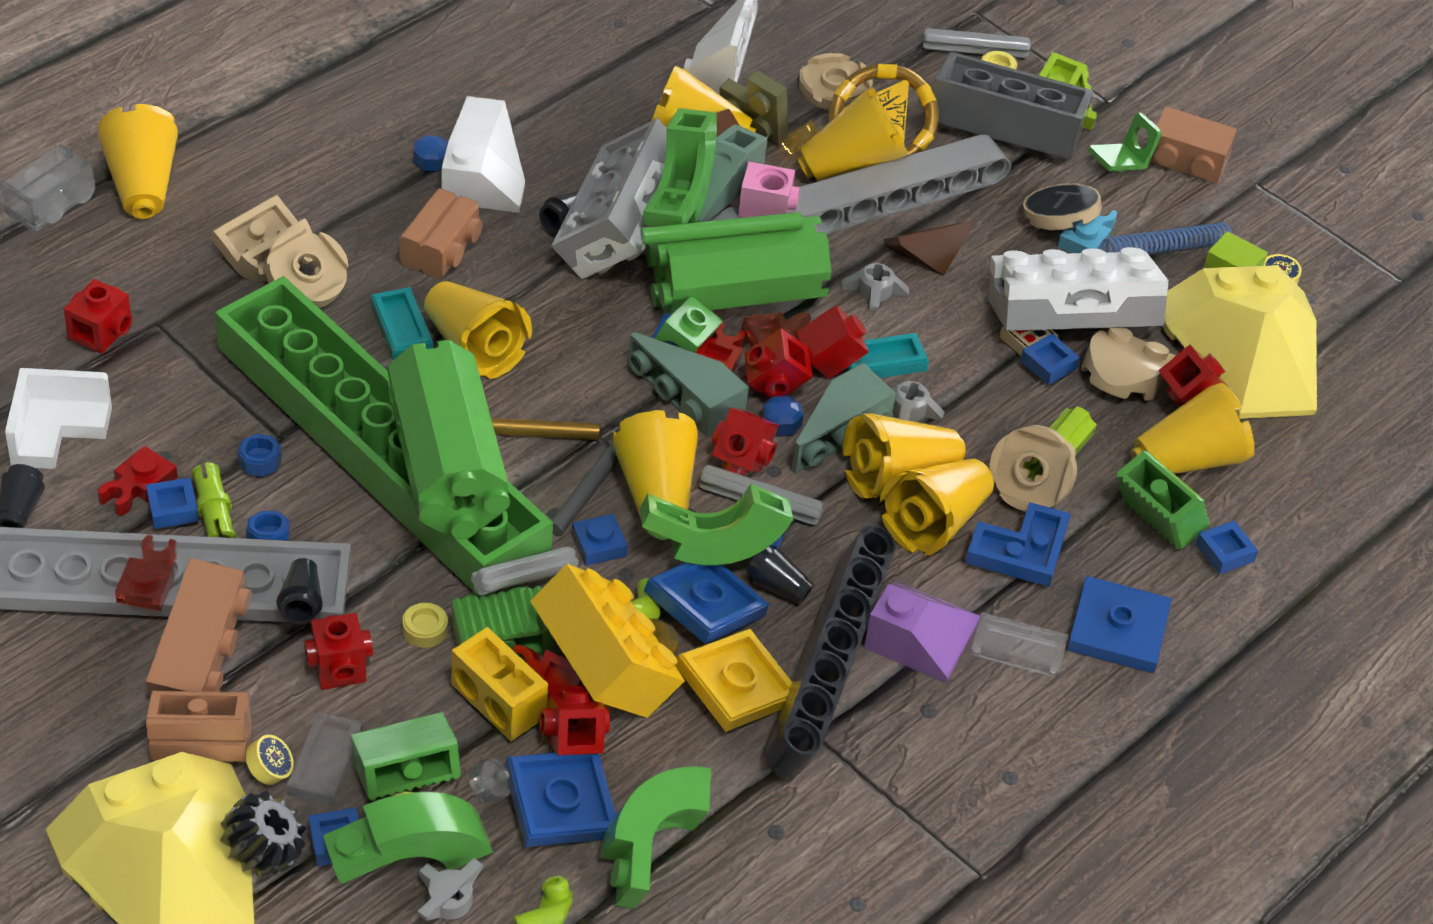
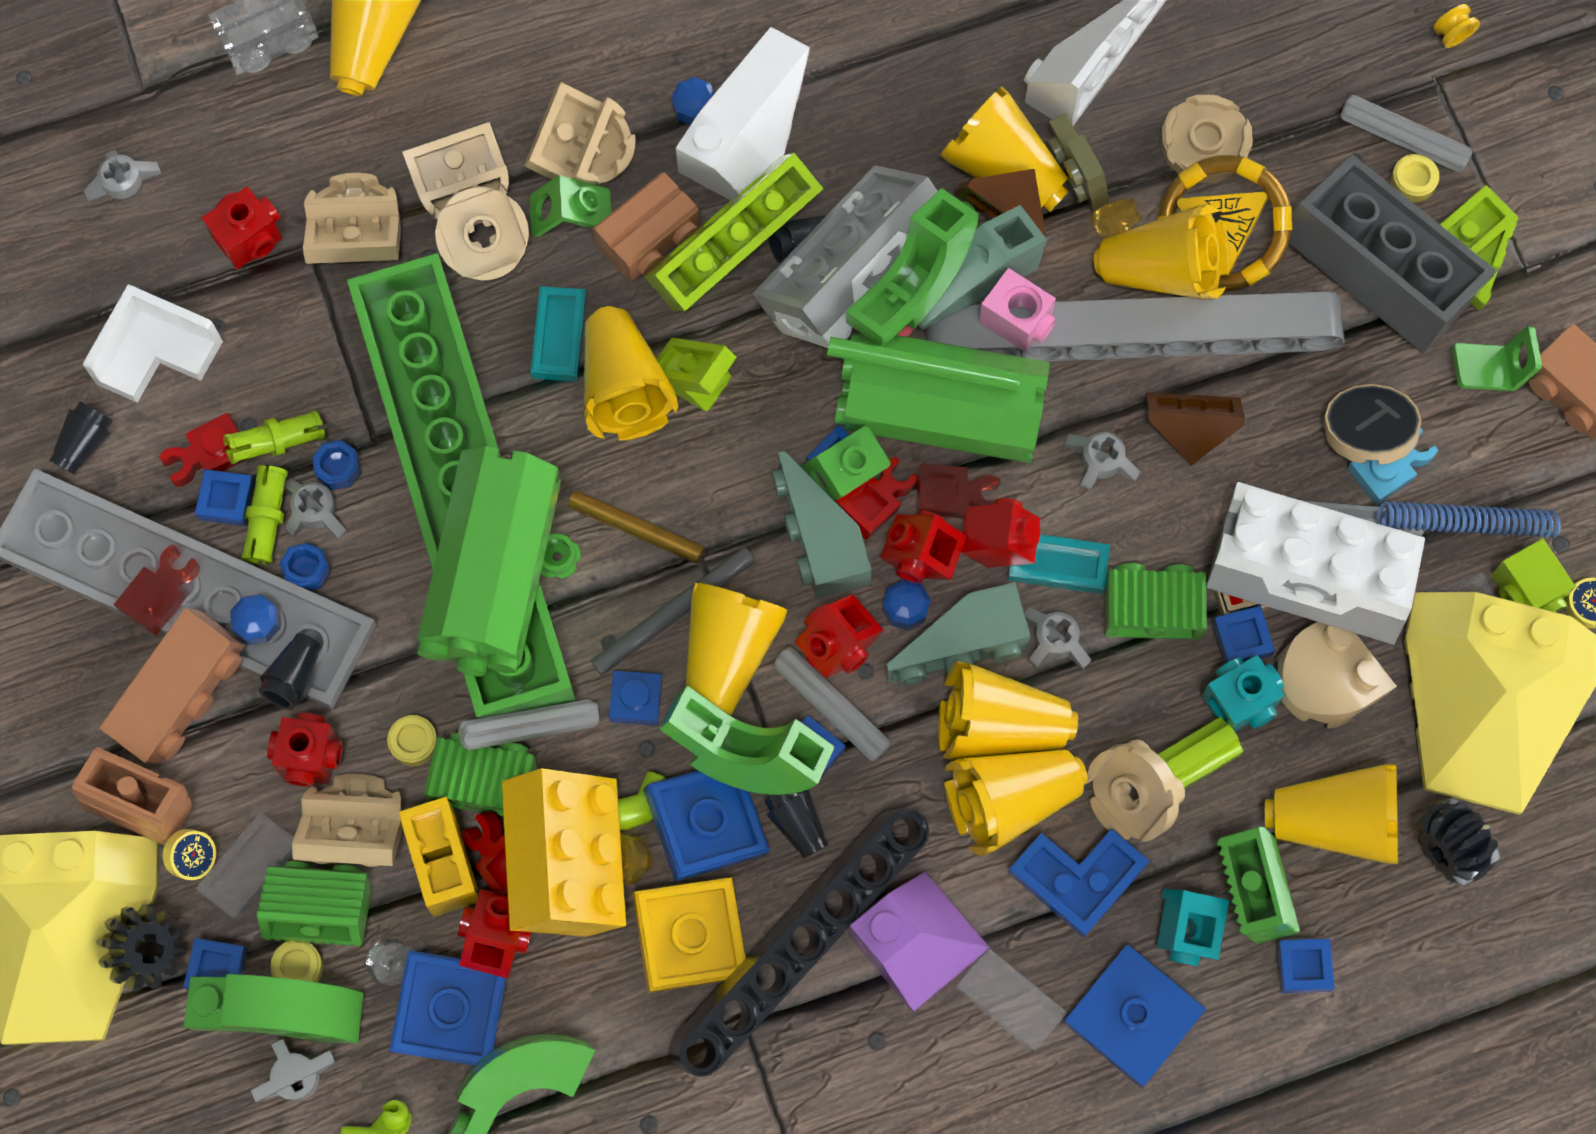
camera: 30 degrees right, 25 degrees up
(189, 292) = (352, 221): none -> tan slope
(196, 447) = (273, 437): none -> lime pin
(253, 563) = (255, 619): none -> blue tile
(257, 497) = (308, 512): none -> light grey piece
(355, 197) = (581, 139): none -> tan slope
(366, 231) = (570, 202): none -> bright green bracket
(406, 687) = (349, 823): none -> tan slope
(514, 212) = (733, 232): none -> lime brick
(541, 302) = (697, 370): none -> lime slope
(973, 356) = (1155, 603): none -> bright green brick
(1075, 384) = (1245, 693): none -> teal brick
(1128, 543) = (1205, 921): none -> teal brick
(1190, 374) = (1388, 733): red brick -> none
(1287, 428) = (1457, 841): none -> black gear

